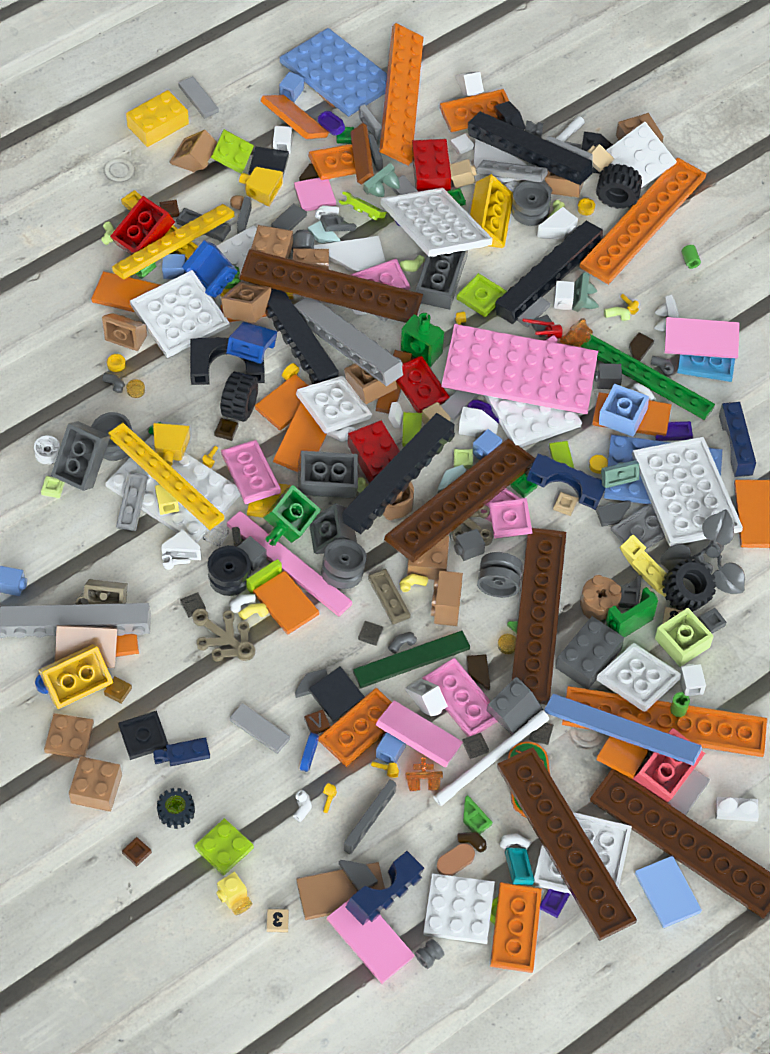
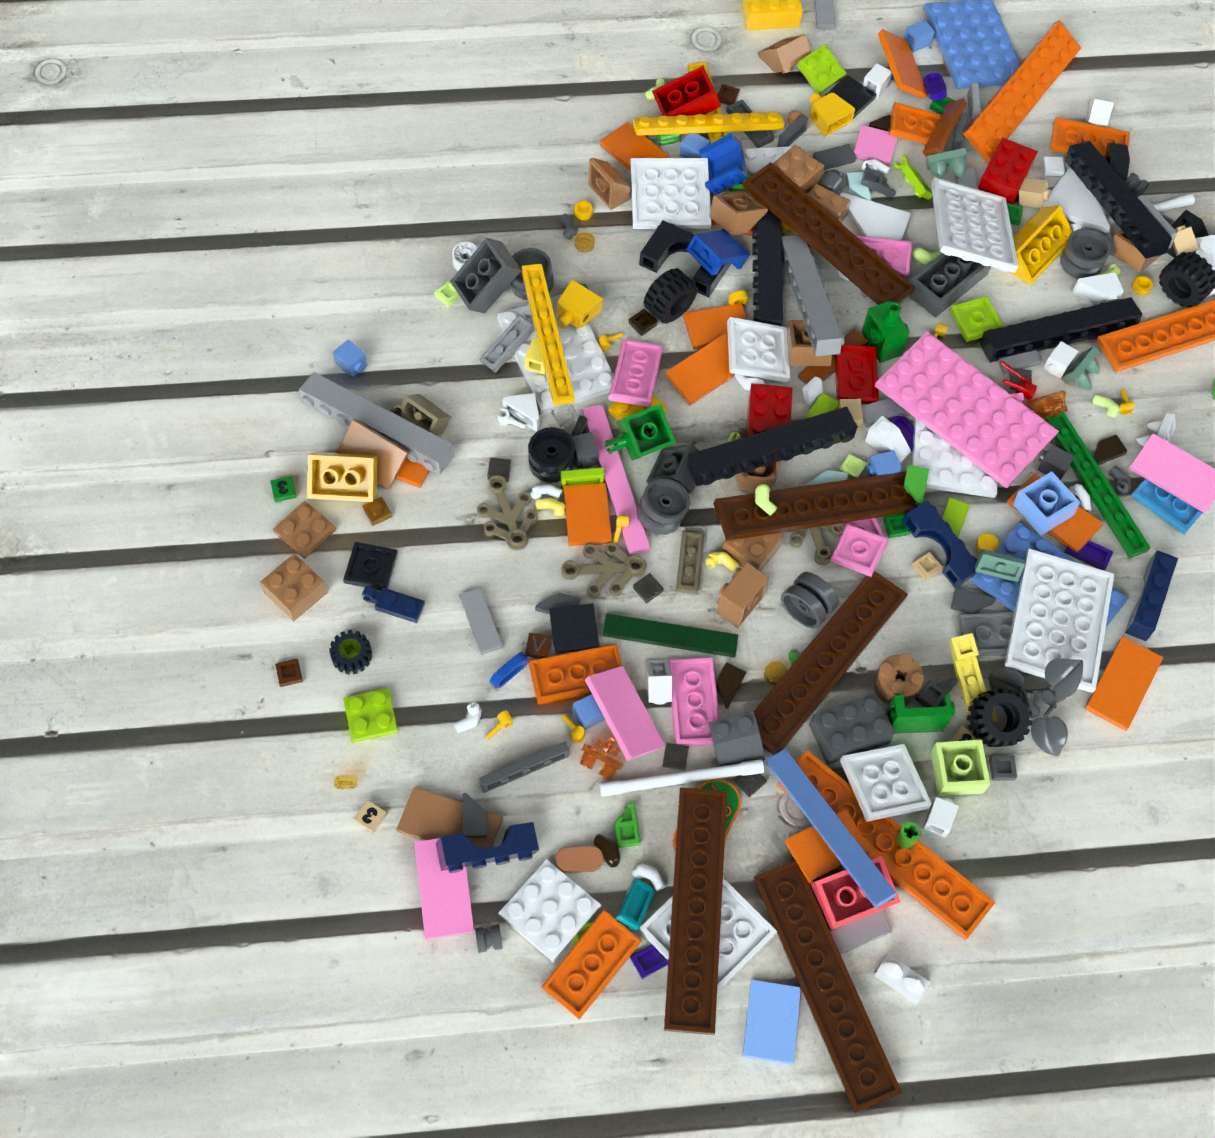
camera: 30 degrees right, 5 degrees up
(28, 714) = (283, 489): none -> green tile
(231, 889) = (345, 760): light yellow brick -> none
(318, 592) = (622, 521): none -> yellow hand
(328, 474) = (705, 412): dark grey brick -> none
(329, 635) = (607, 568): none -> dark tan plant
(400, 640) = (672, 610): dark grey arm -> none
(420, 516) = (762, 499): none -> yellowish green arm
(469, 545) = (801, 554): dark grey brick -> none
(512, 171) = (1085, 213): light grey tile -> none
(519, 444) = (915, 482): none -> bright green tile

